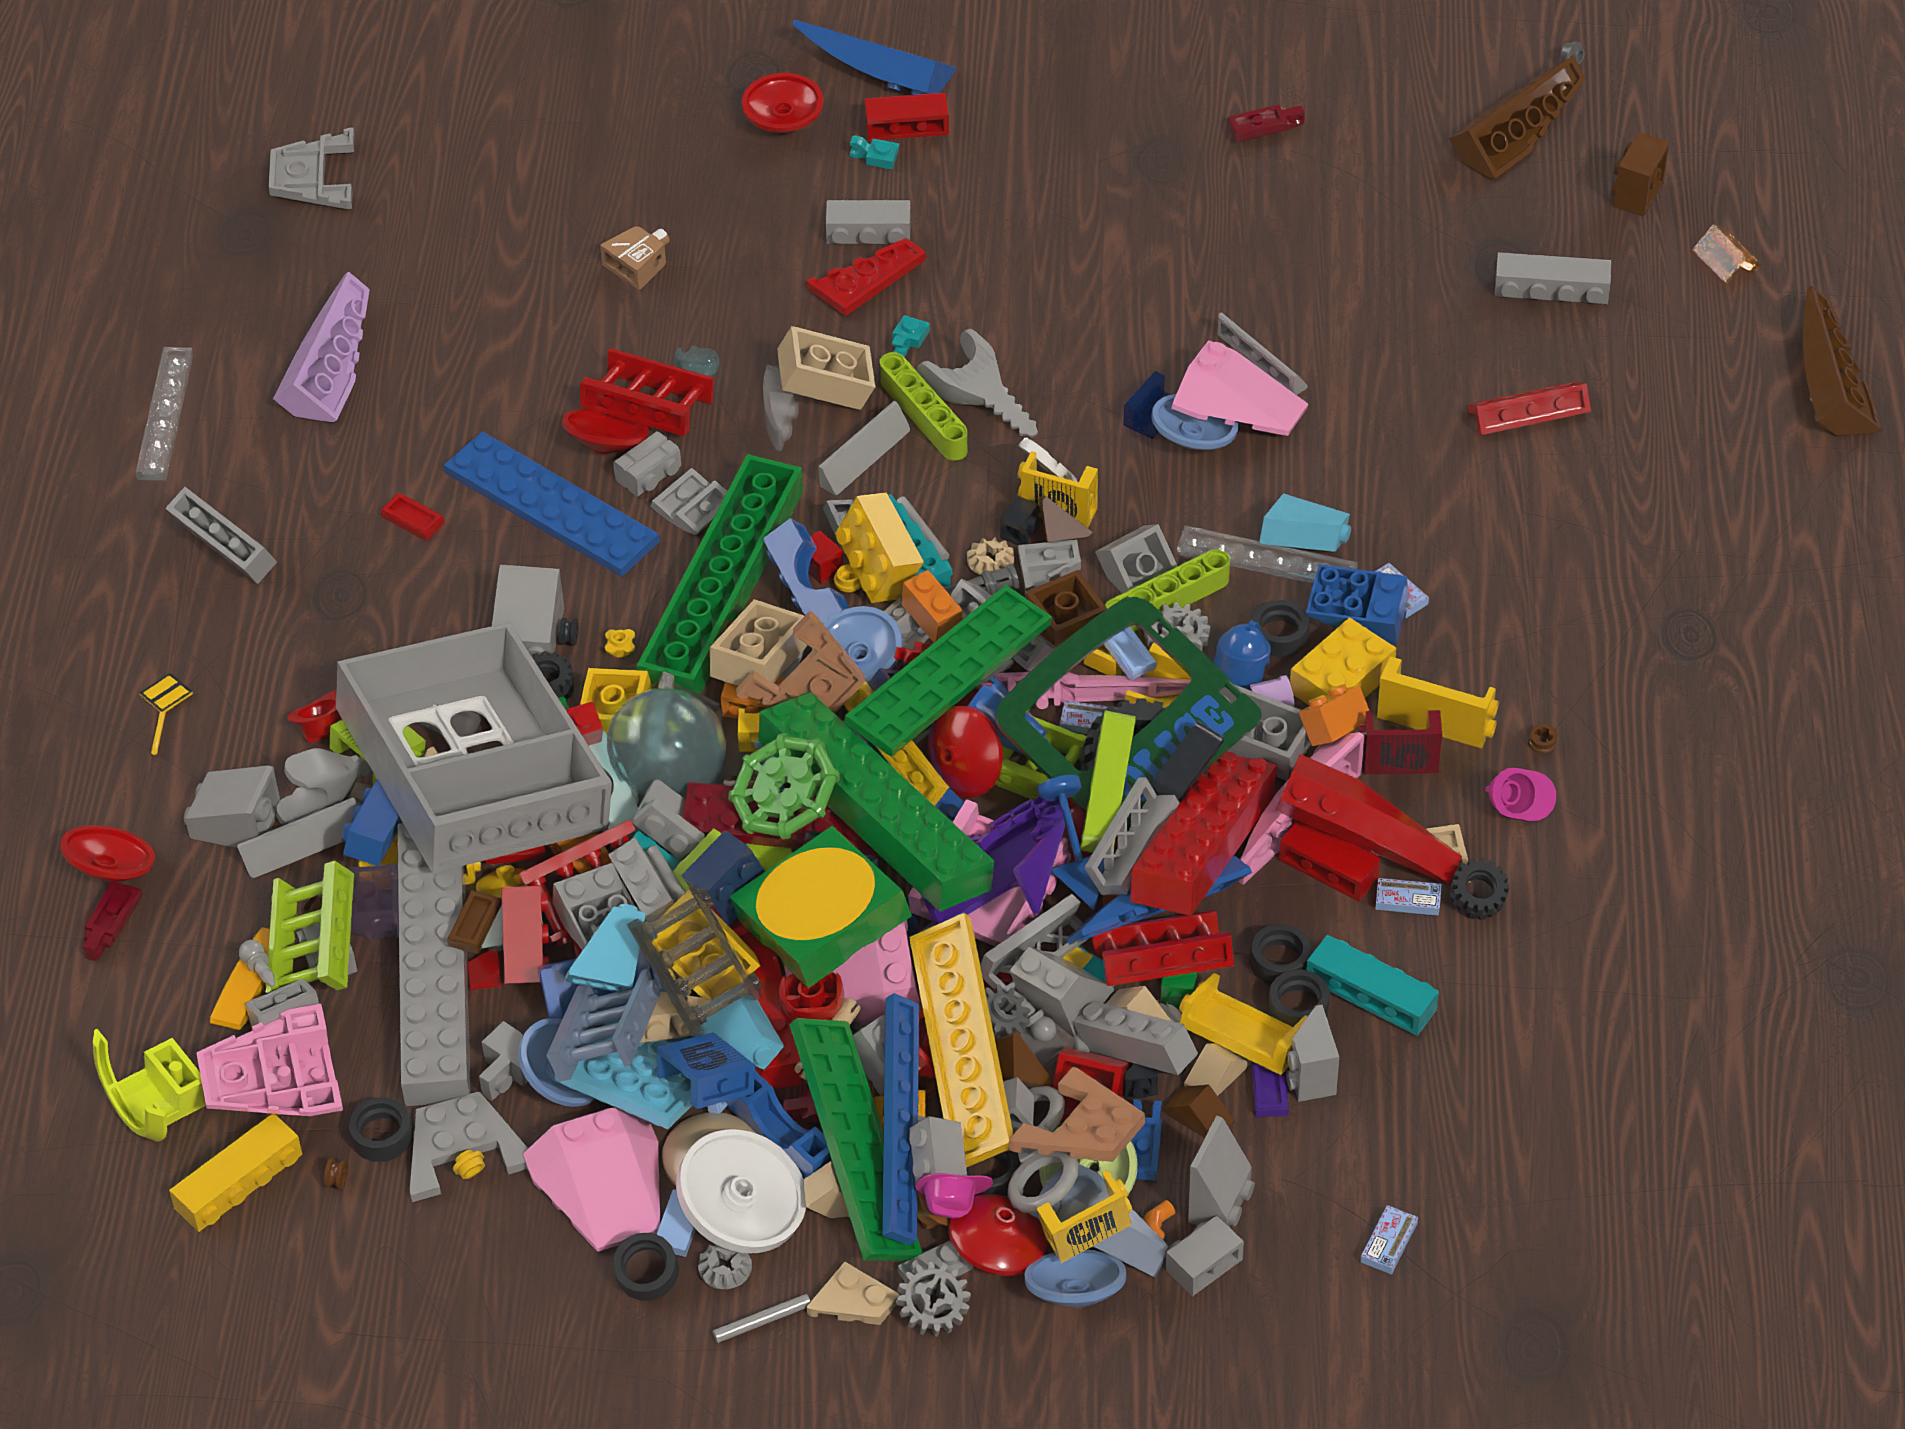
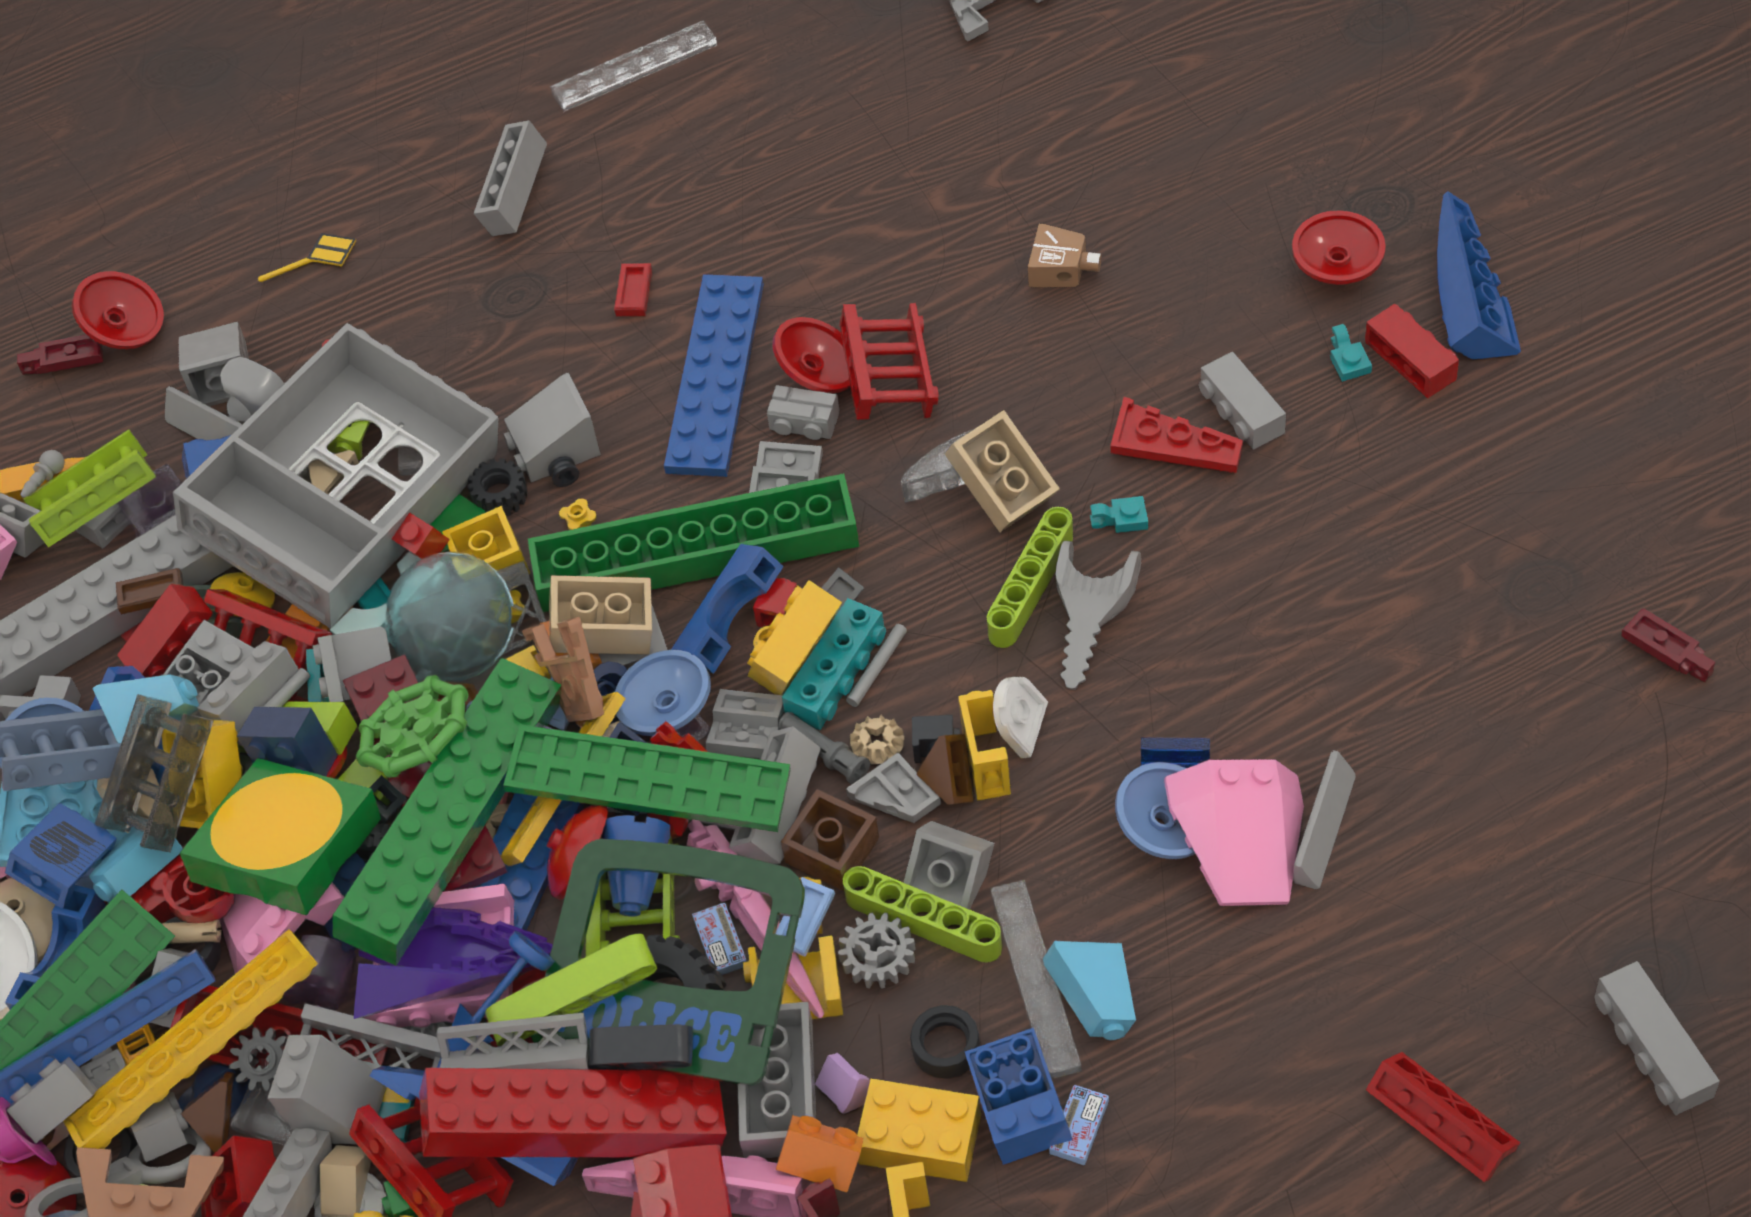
camera: 65 degrees right, 5 degrees up
(326, 359) = (771, 127): lavender wedge -> none
(698, 360) = (954, 376): clear light blue hair -> none
(863, 449) = (942, 561): light grey slope -> none
(930, 605) = (752, 722): orange brick -> none
(1243, 654) = (873, 1031): blue helmet -> none

